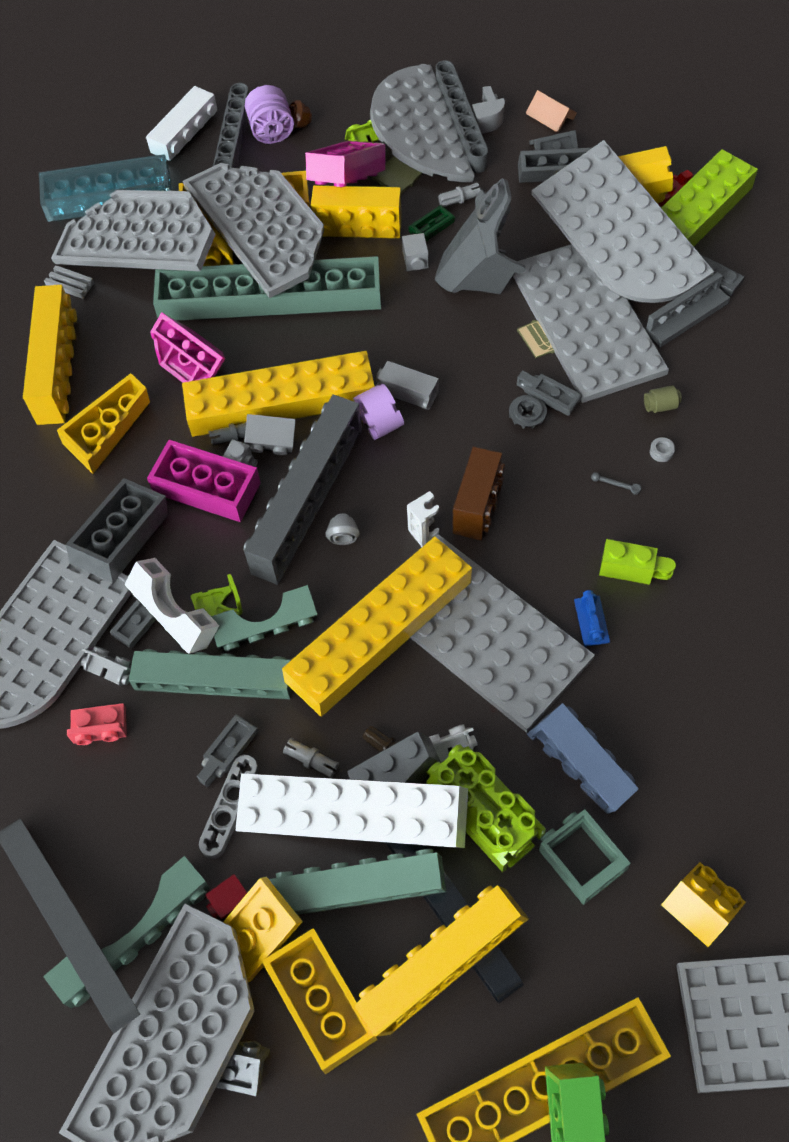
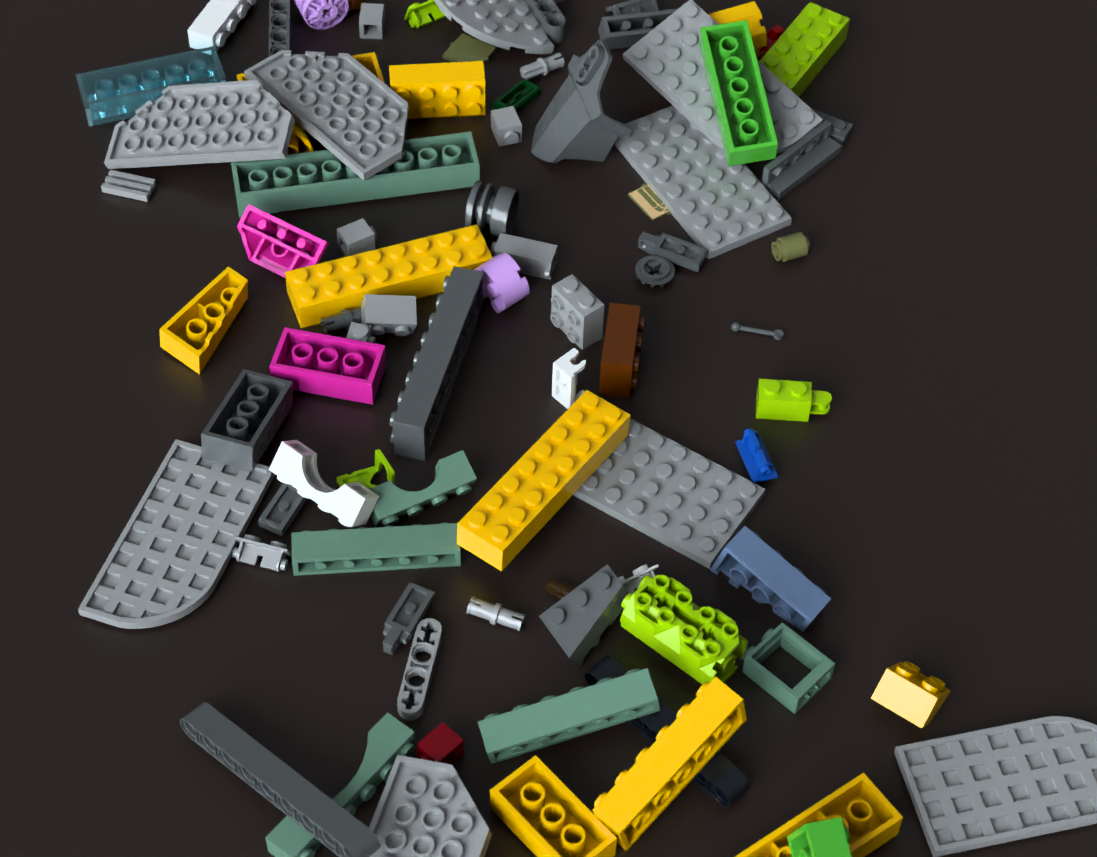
camera: 15 degrees left, 10 degrees down
(49, 355) = (131, 258): yellow brick -> none
(98, 723) = (263, 609): coral bracket -> none
(257, 353) = (356, 238): none -> light grey brick
(262, 924) = (483, 758): yellow plate -> none
(313, 136) = (371, 21): none -> light grey brick
(342, 530) = (484, 400): light grey cone -> none
(345, 162) = (417, 41): dark pink brick -> none
(353, 809) = (553, 644): white brick -> none
(384, 336) = (498, 210): none -> dark grey wheel
(443, 449) = (577, 312): none -> light grey brick
(634, 239) = (738, 93): none -> bright green brick
(662, 449) = (798, 295): light grey tile -> none

